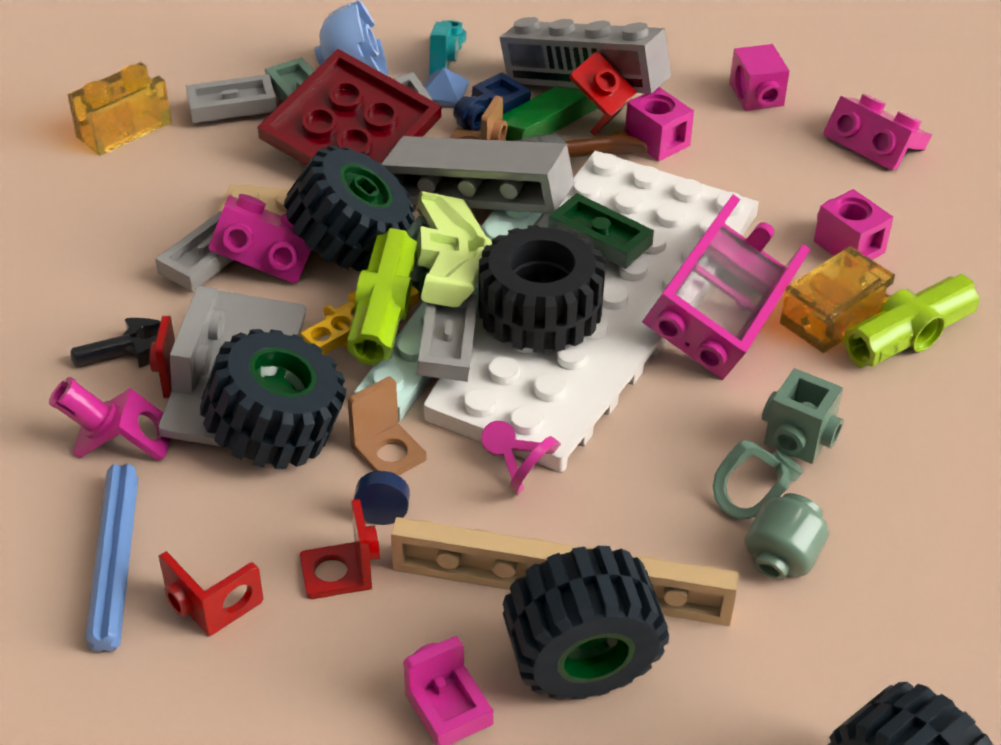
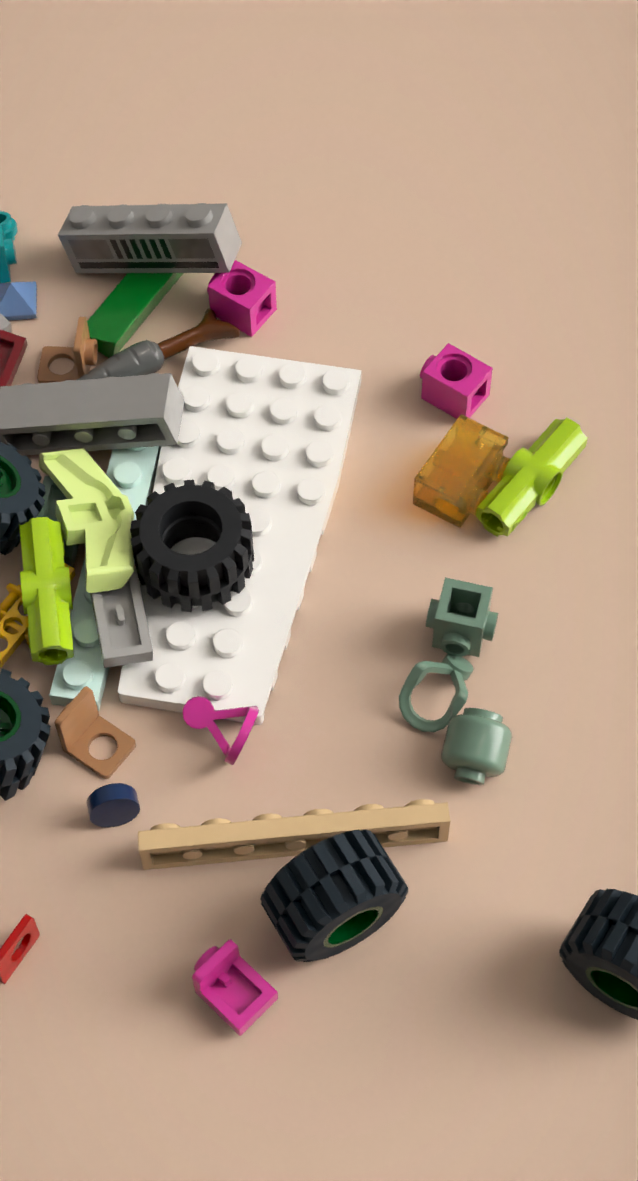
camera: 15 degrees left, 15 degrees up
(354, 555) = (110, 866): red bracket -> none
(470, 109) = (70, 299): dark blue plate -> none
(603, 87) = (180, 278): red bracket -> none
(612, 233) = (226, 455): dark green plate -> none
(722, 294) = (359, 494): door -> none
(759, 77) = (324, 212): dark pink brick -> none
(874, 132) = (450, 251): dark pink bracket -> none

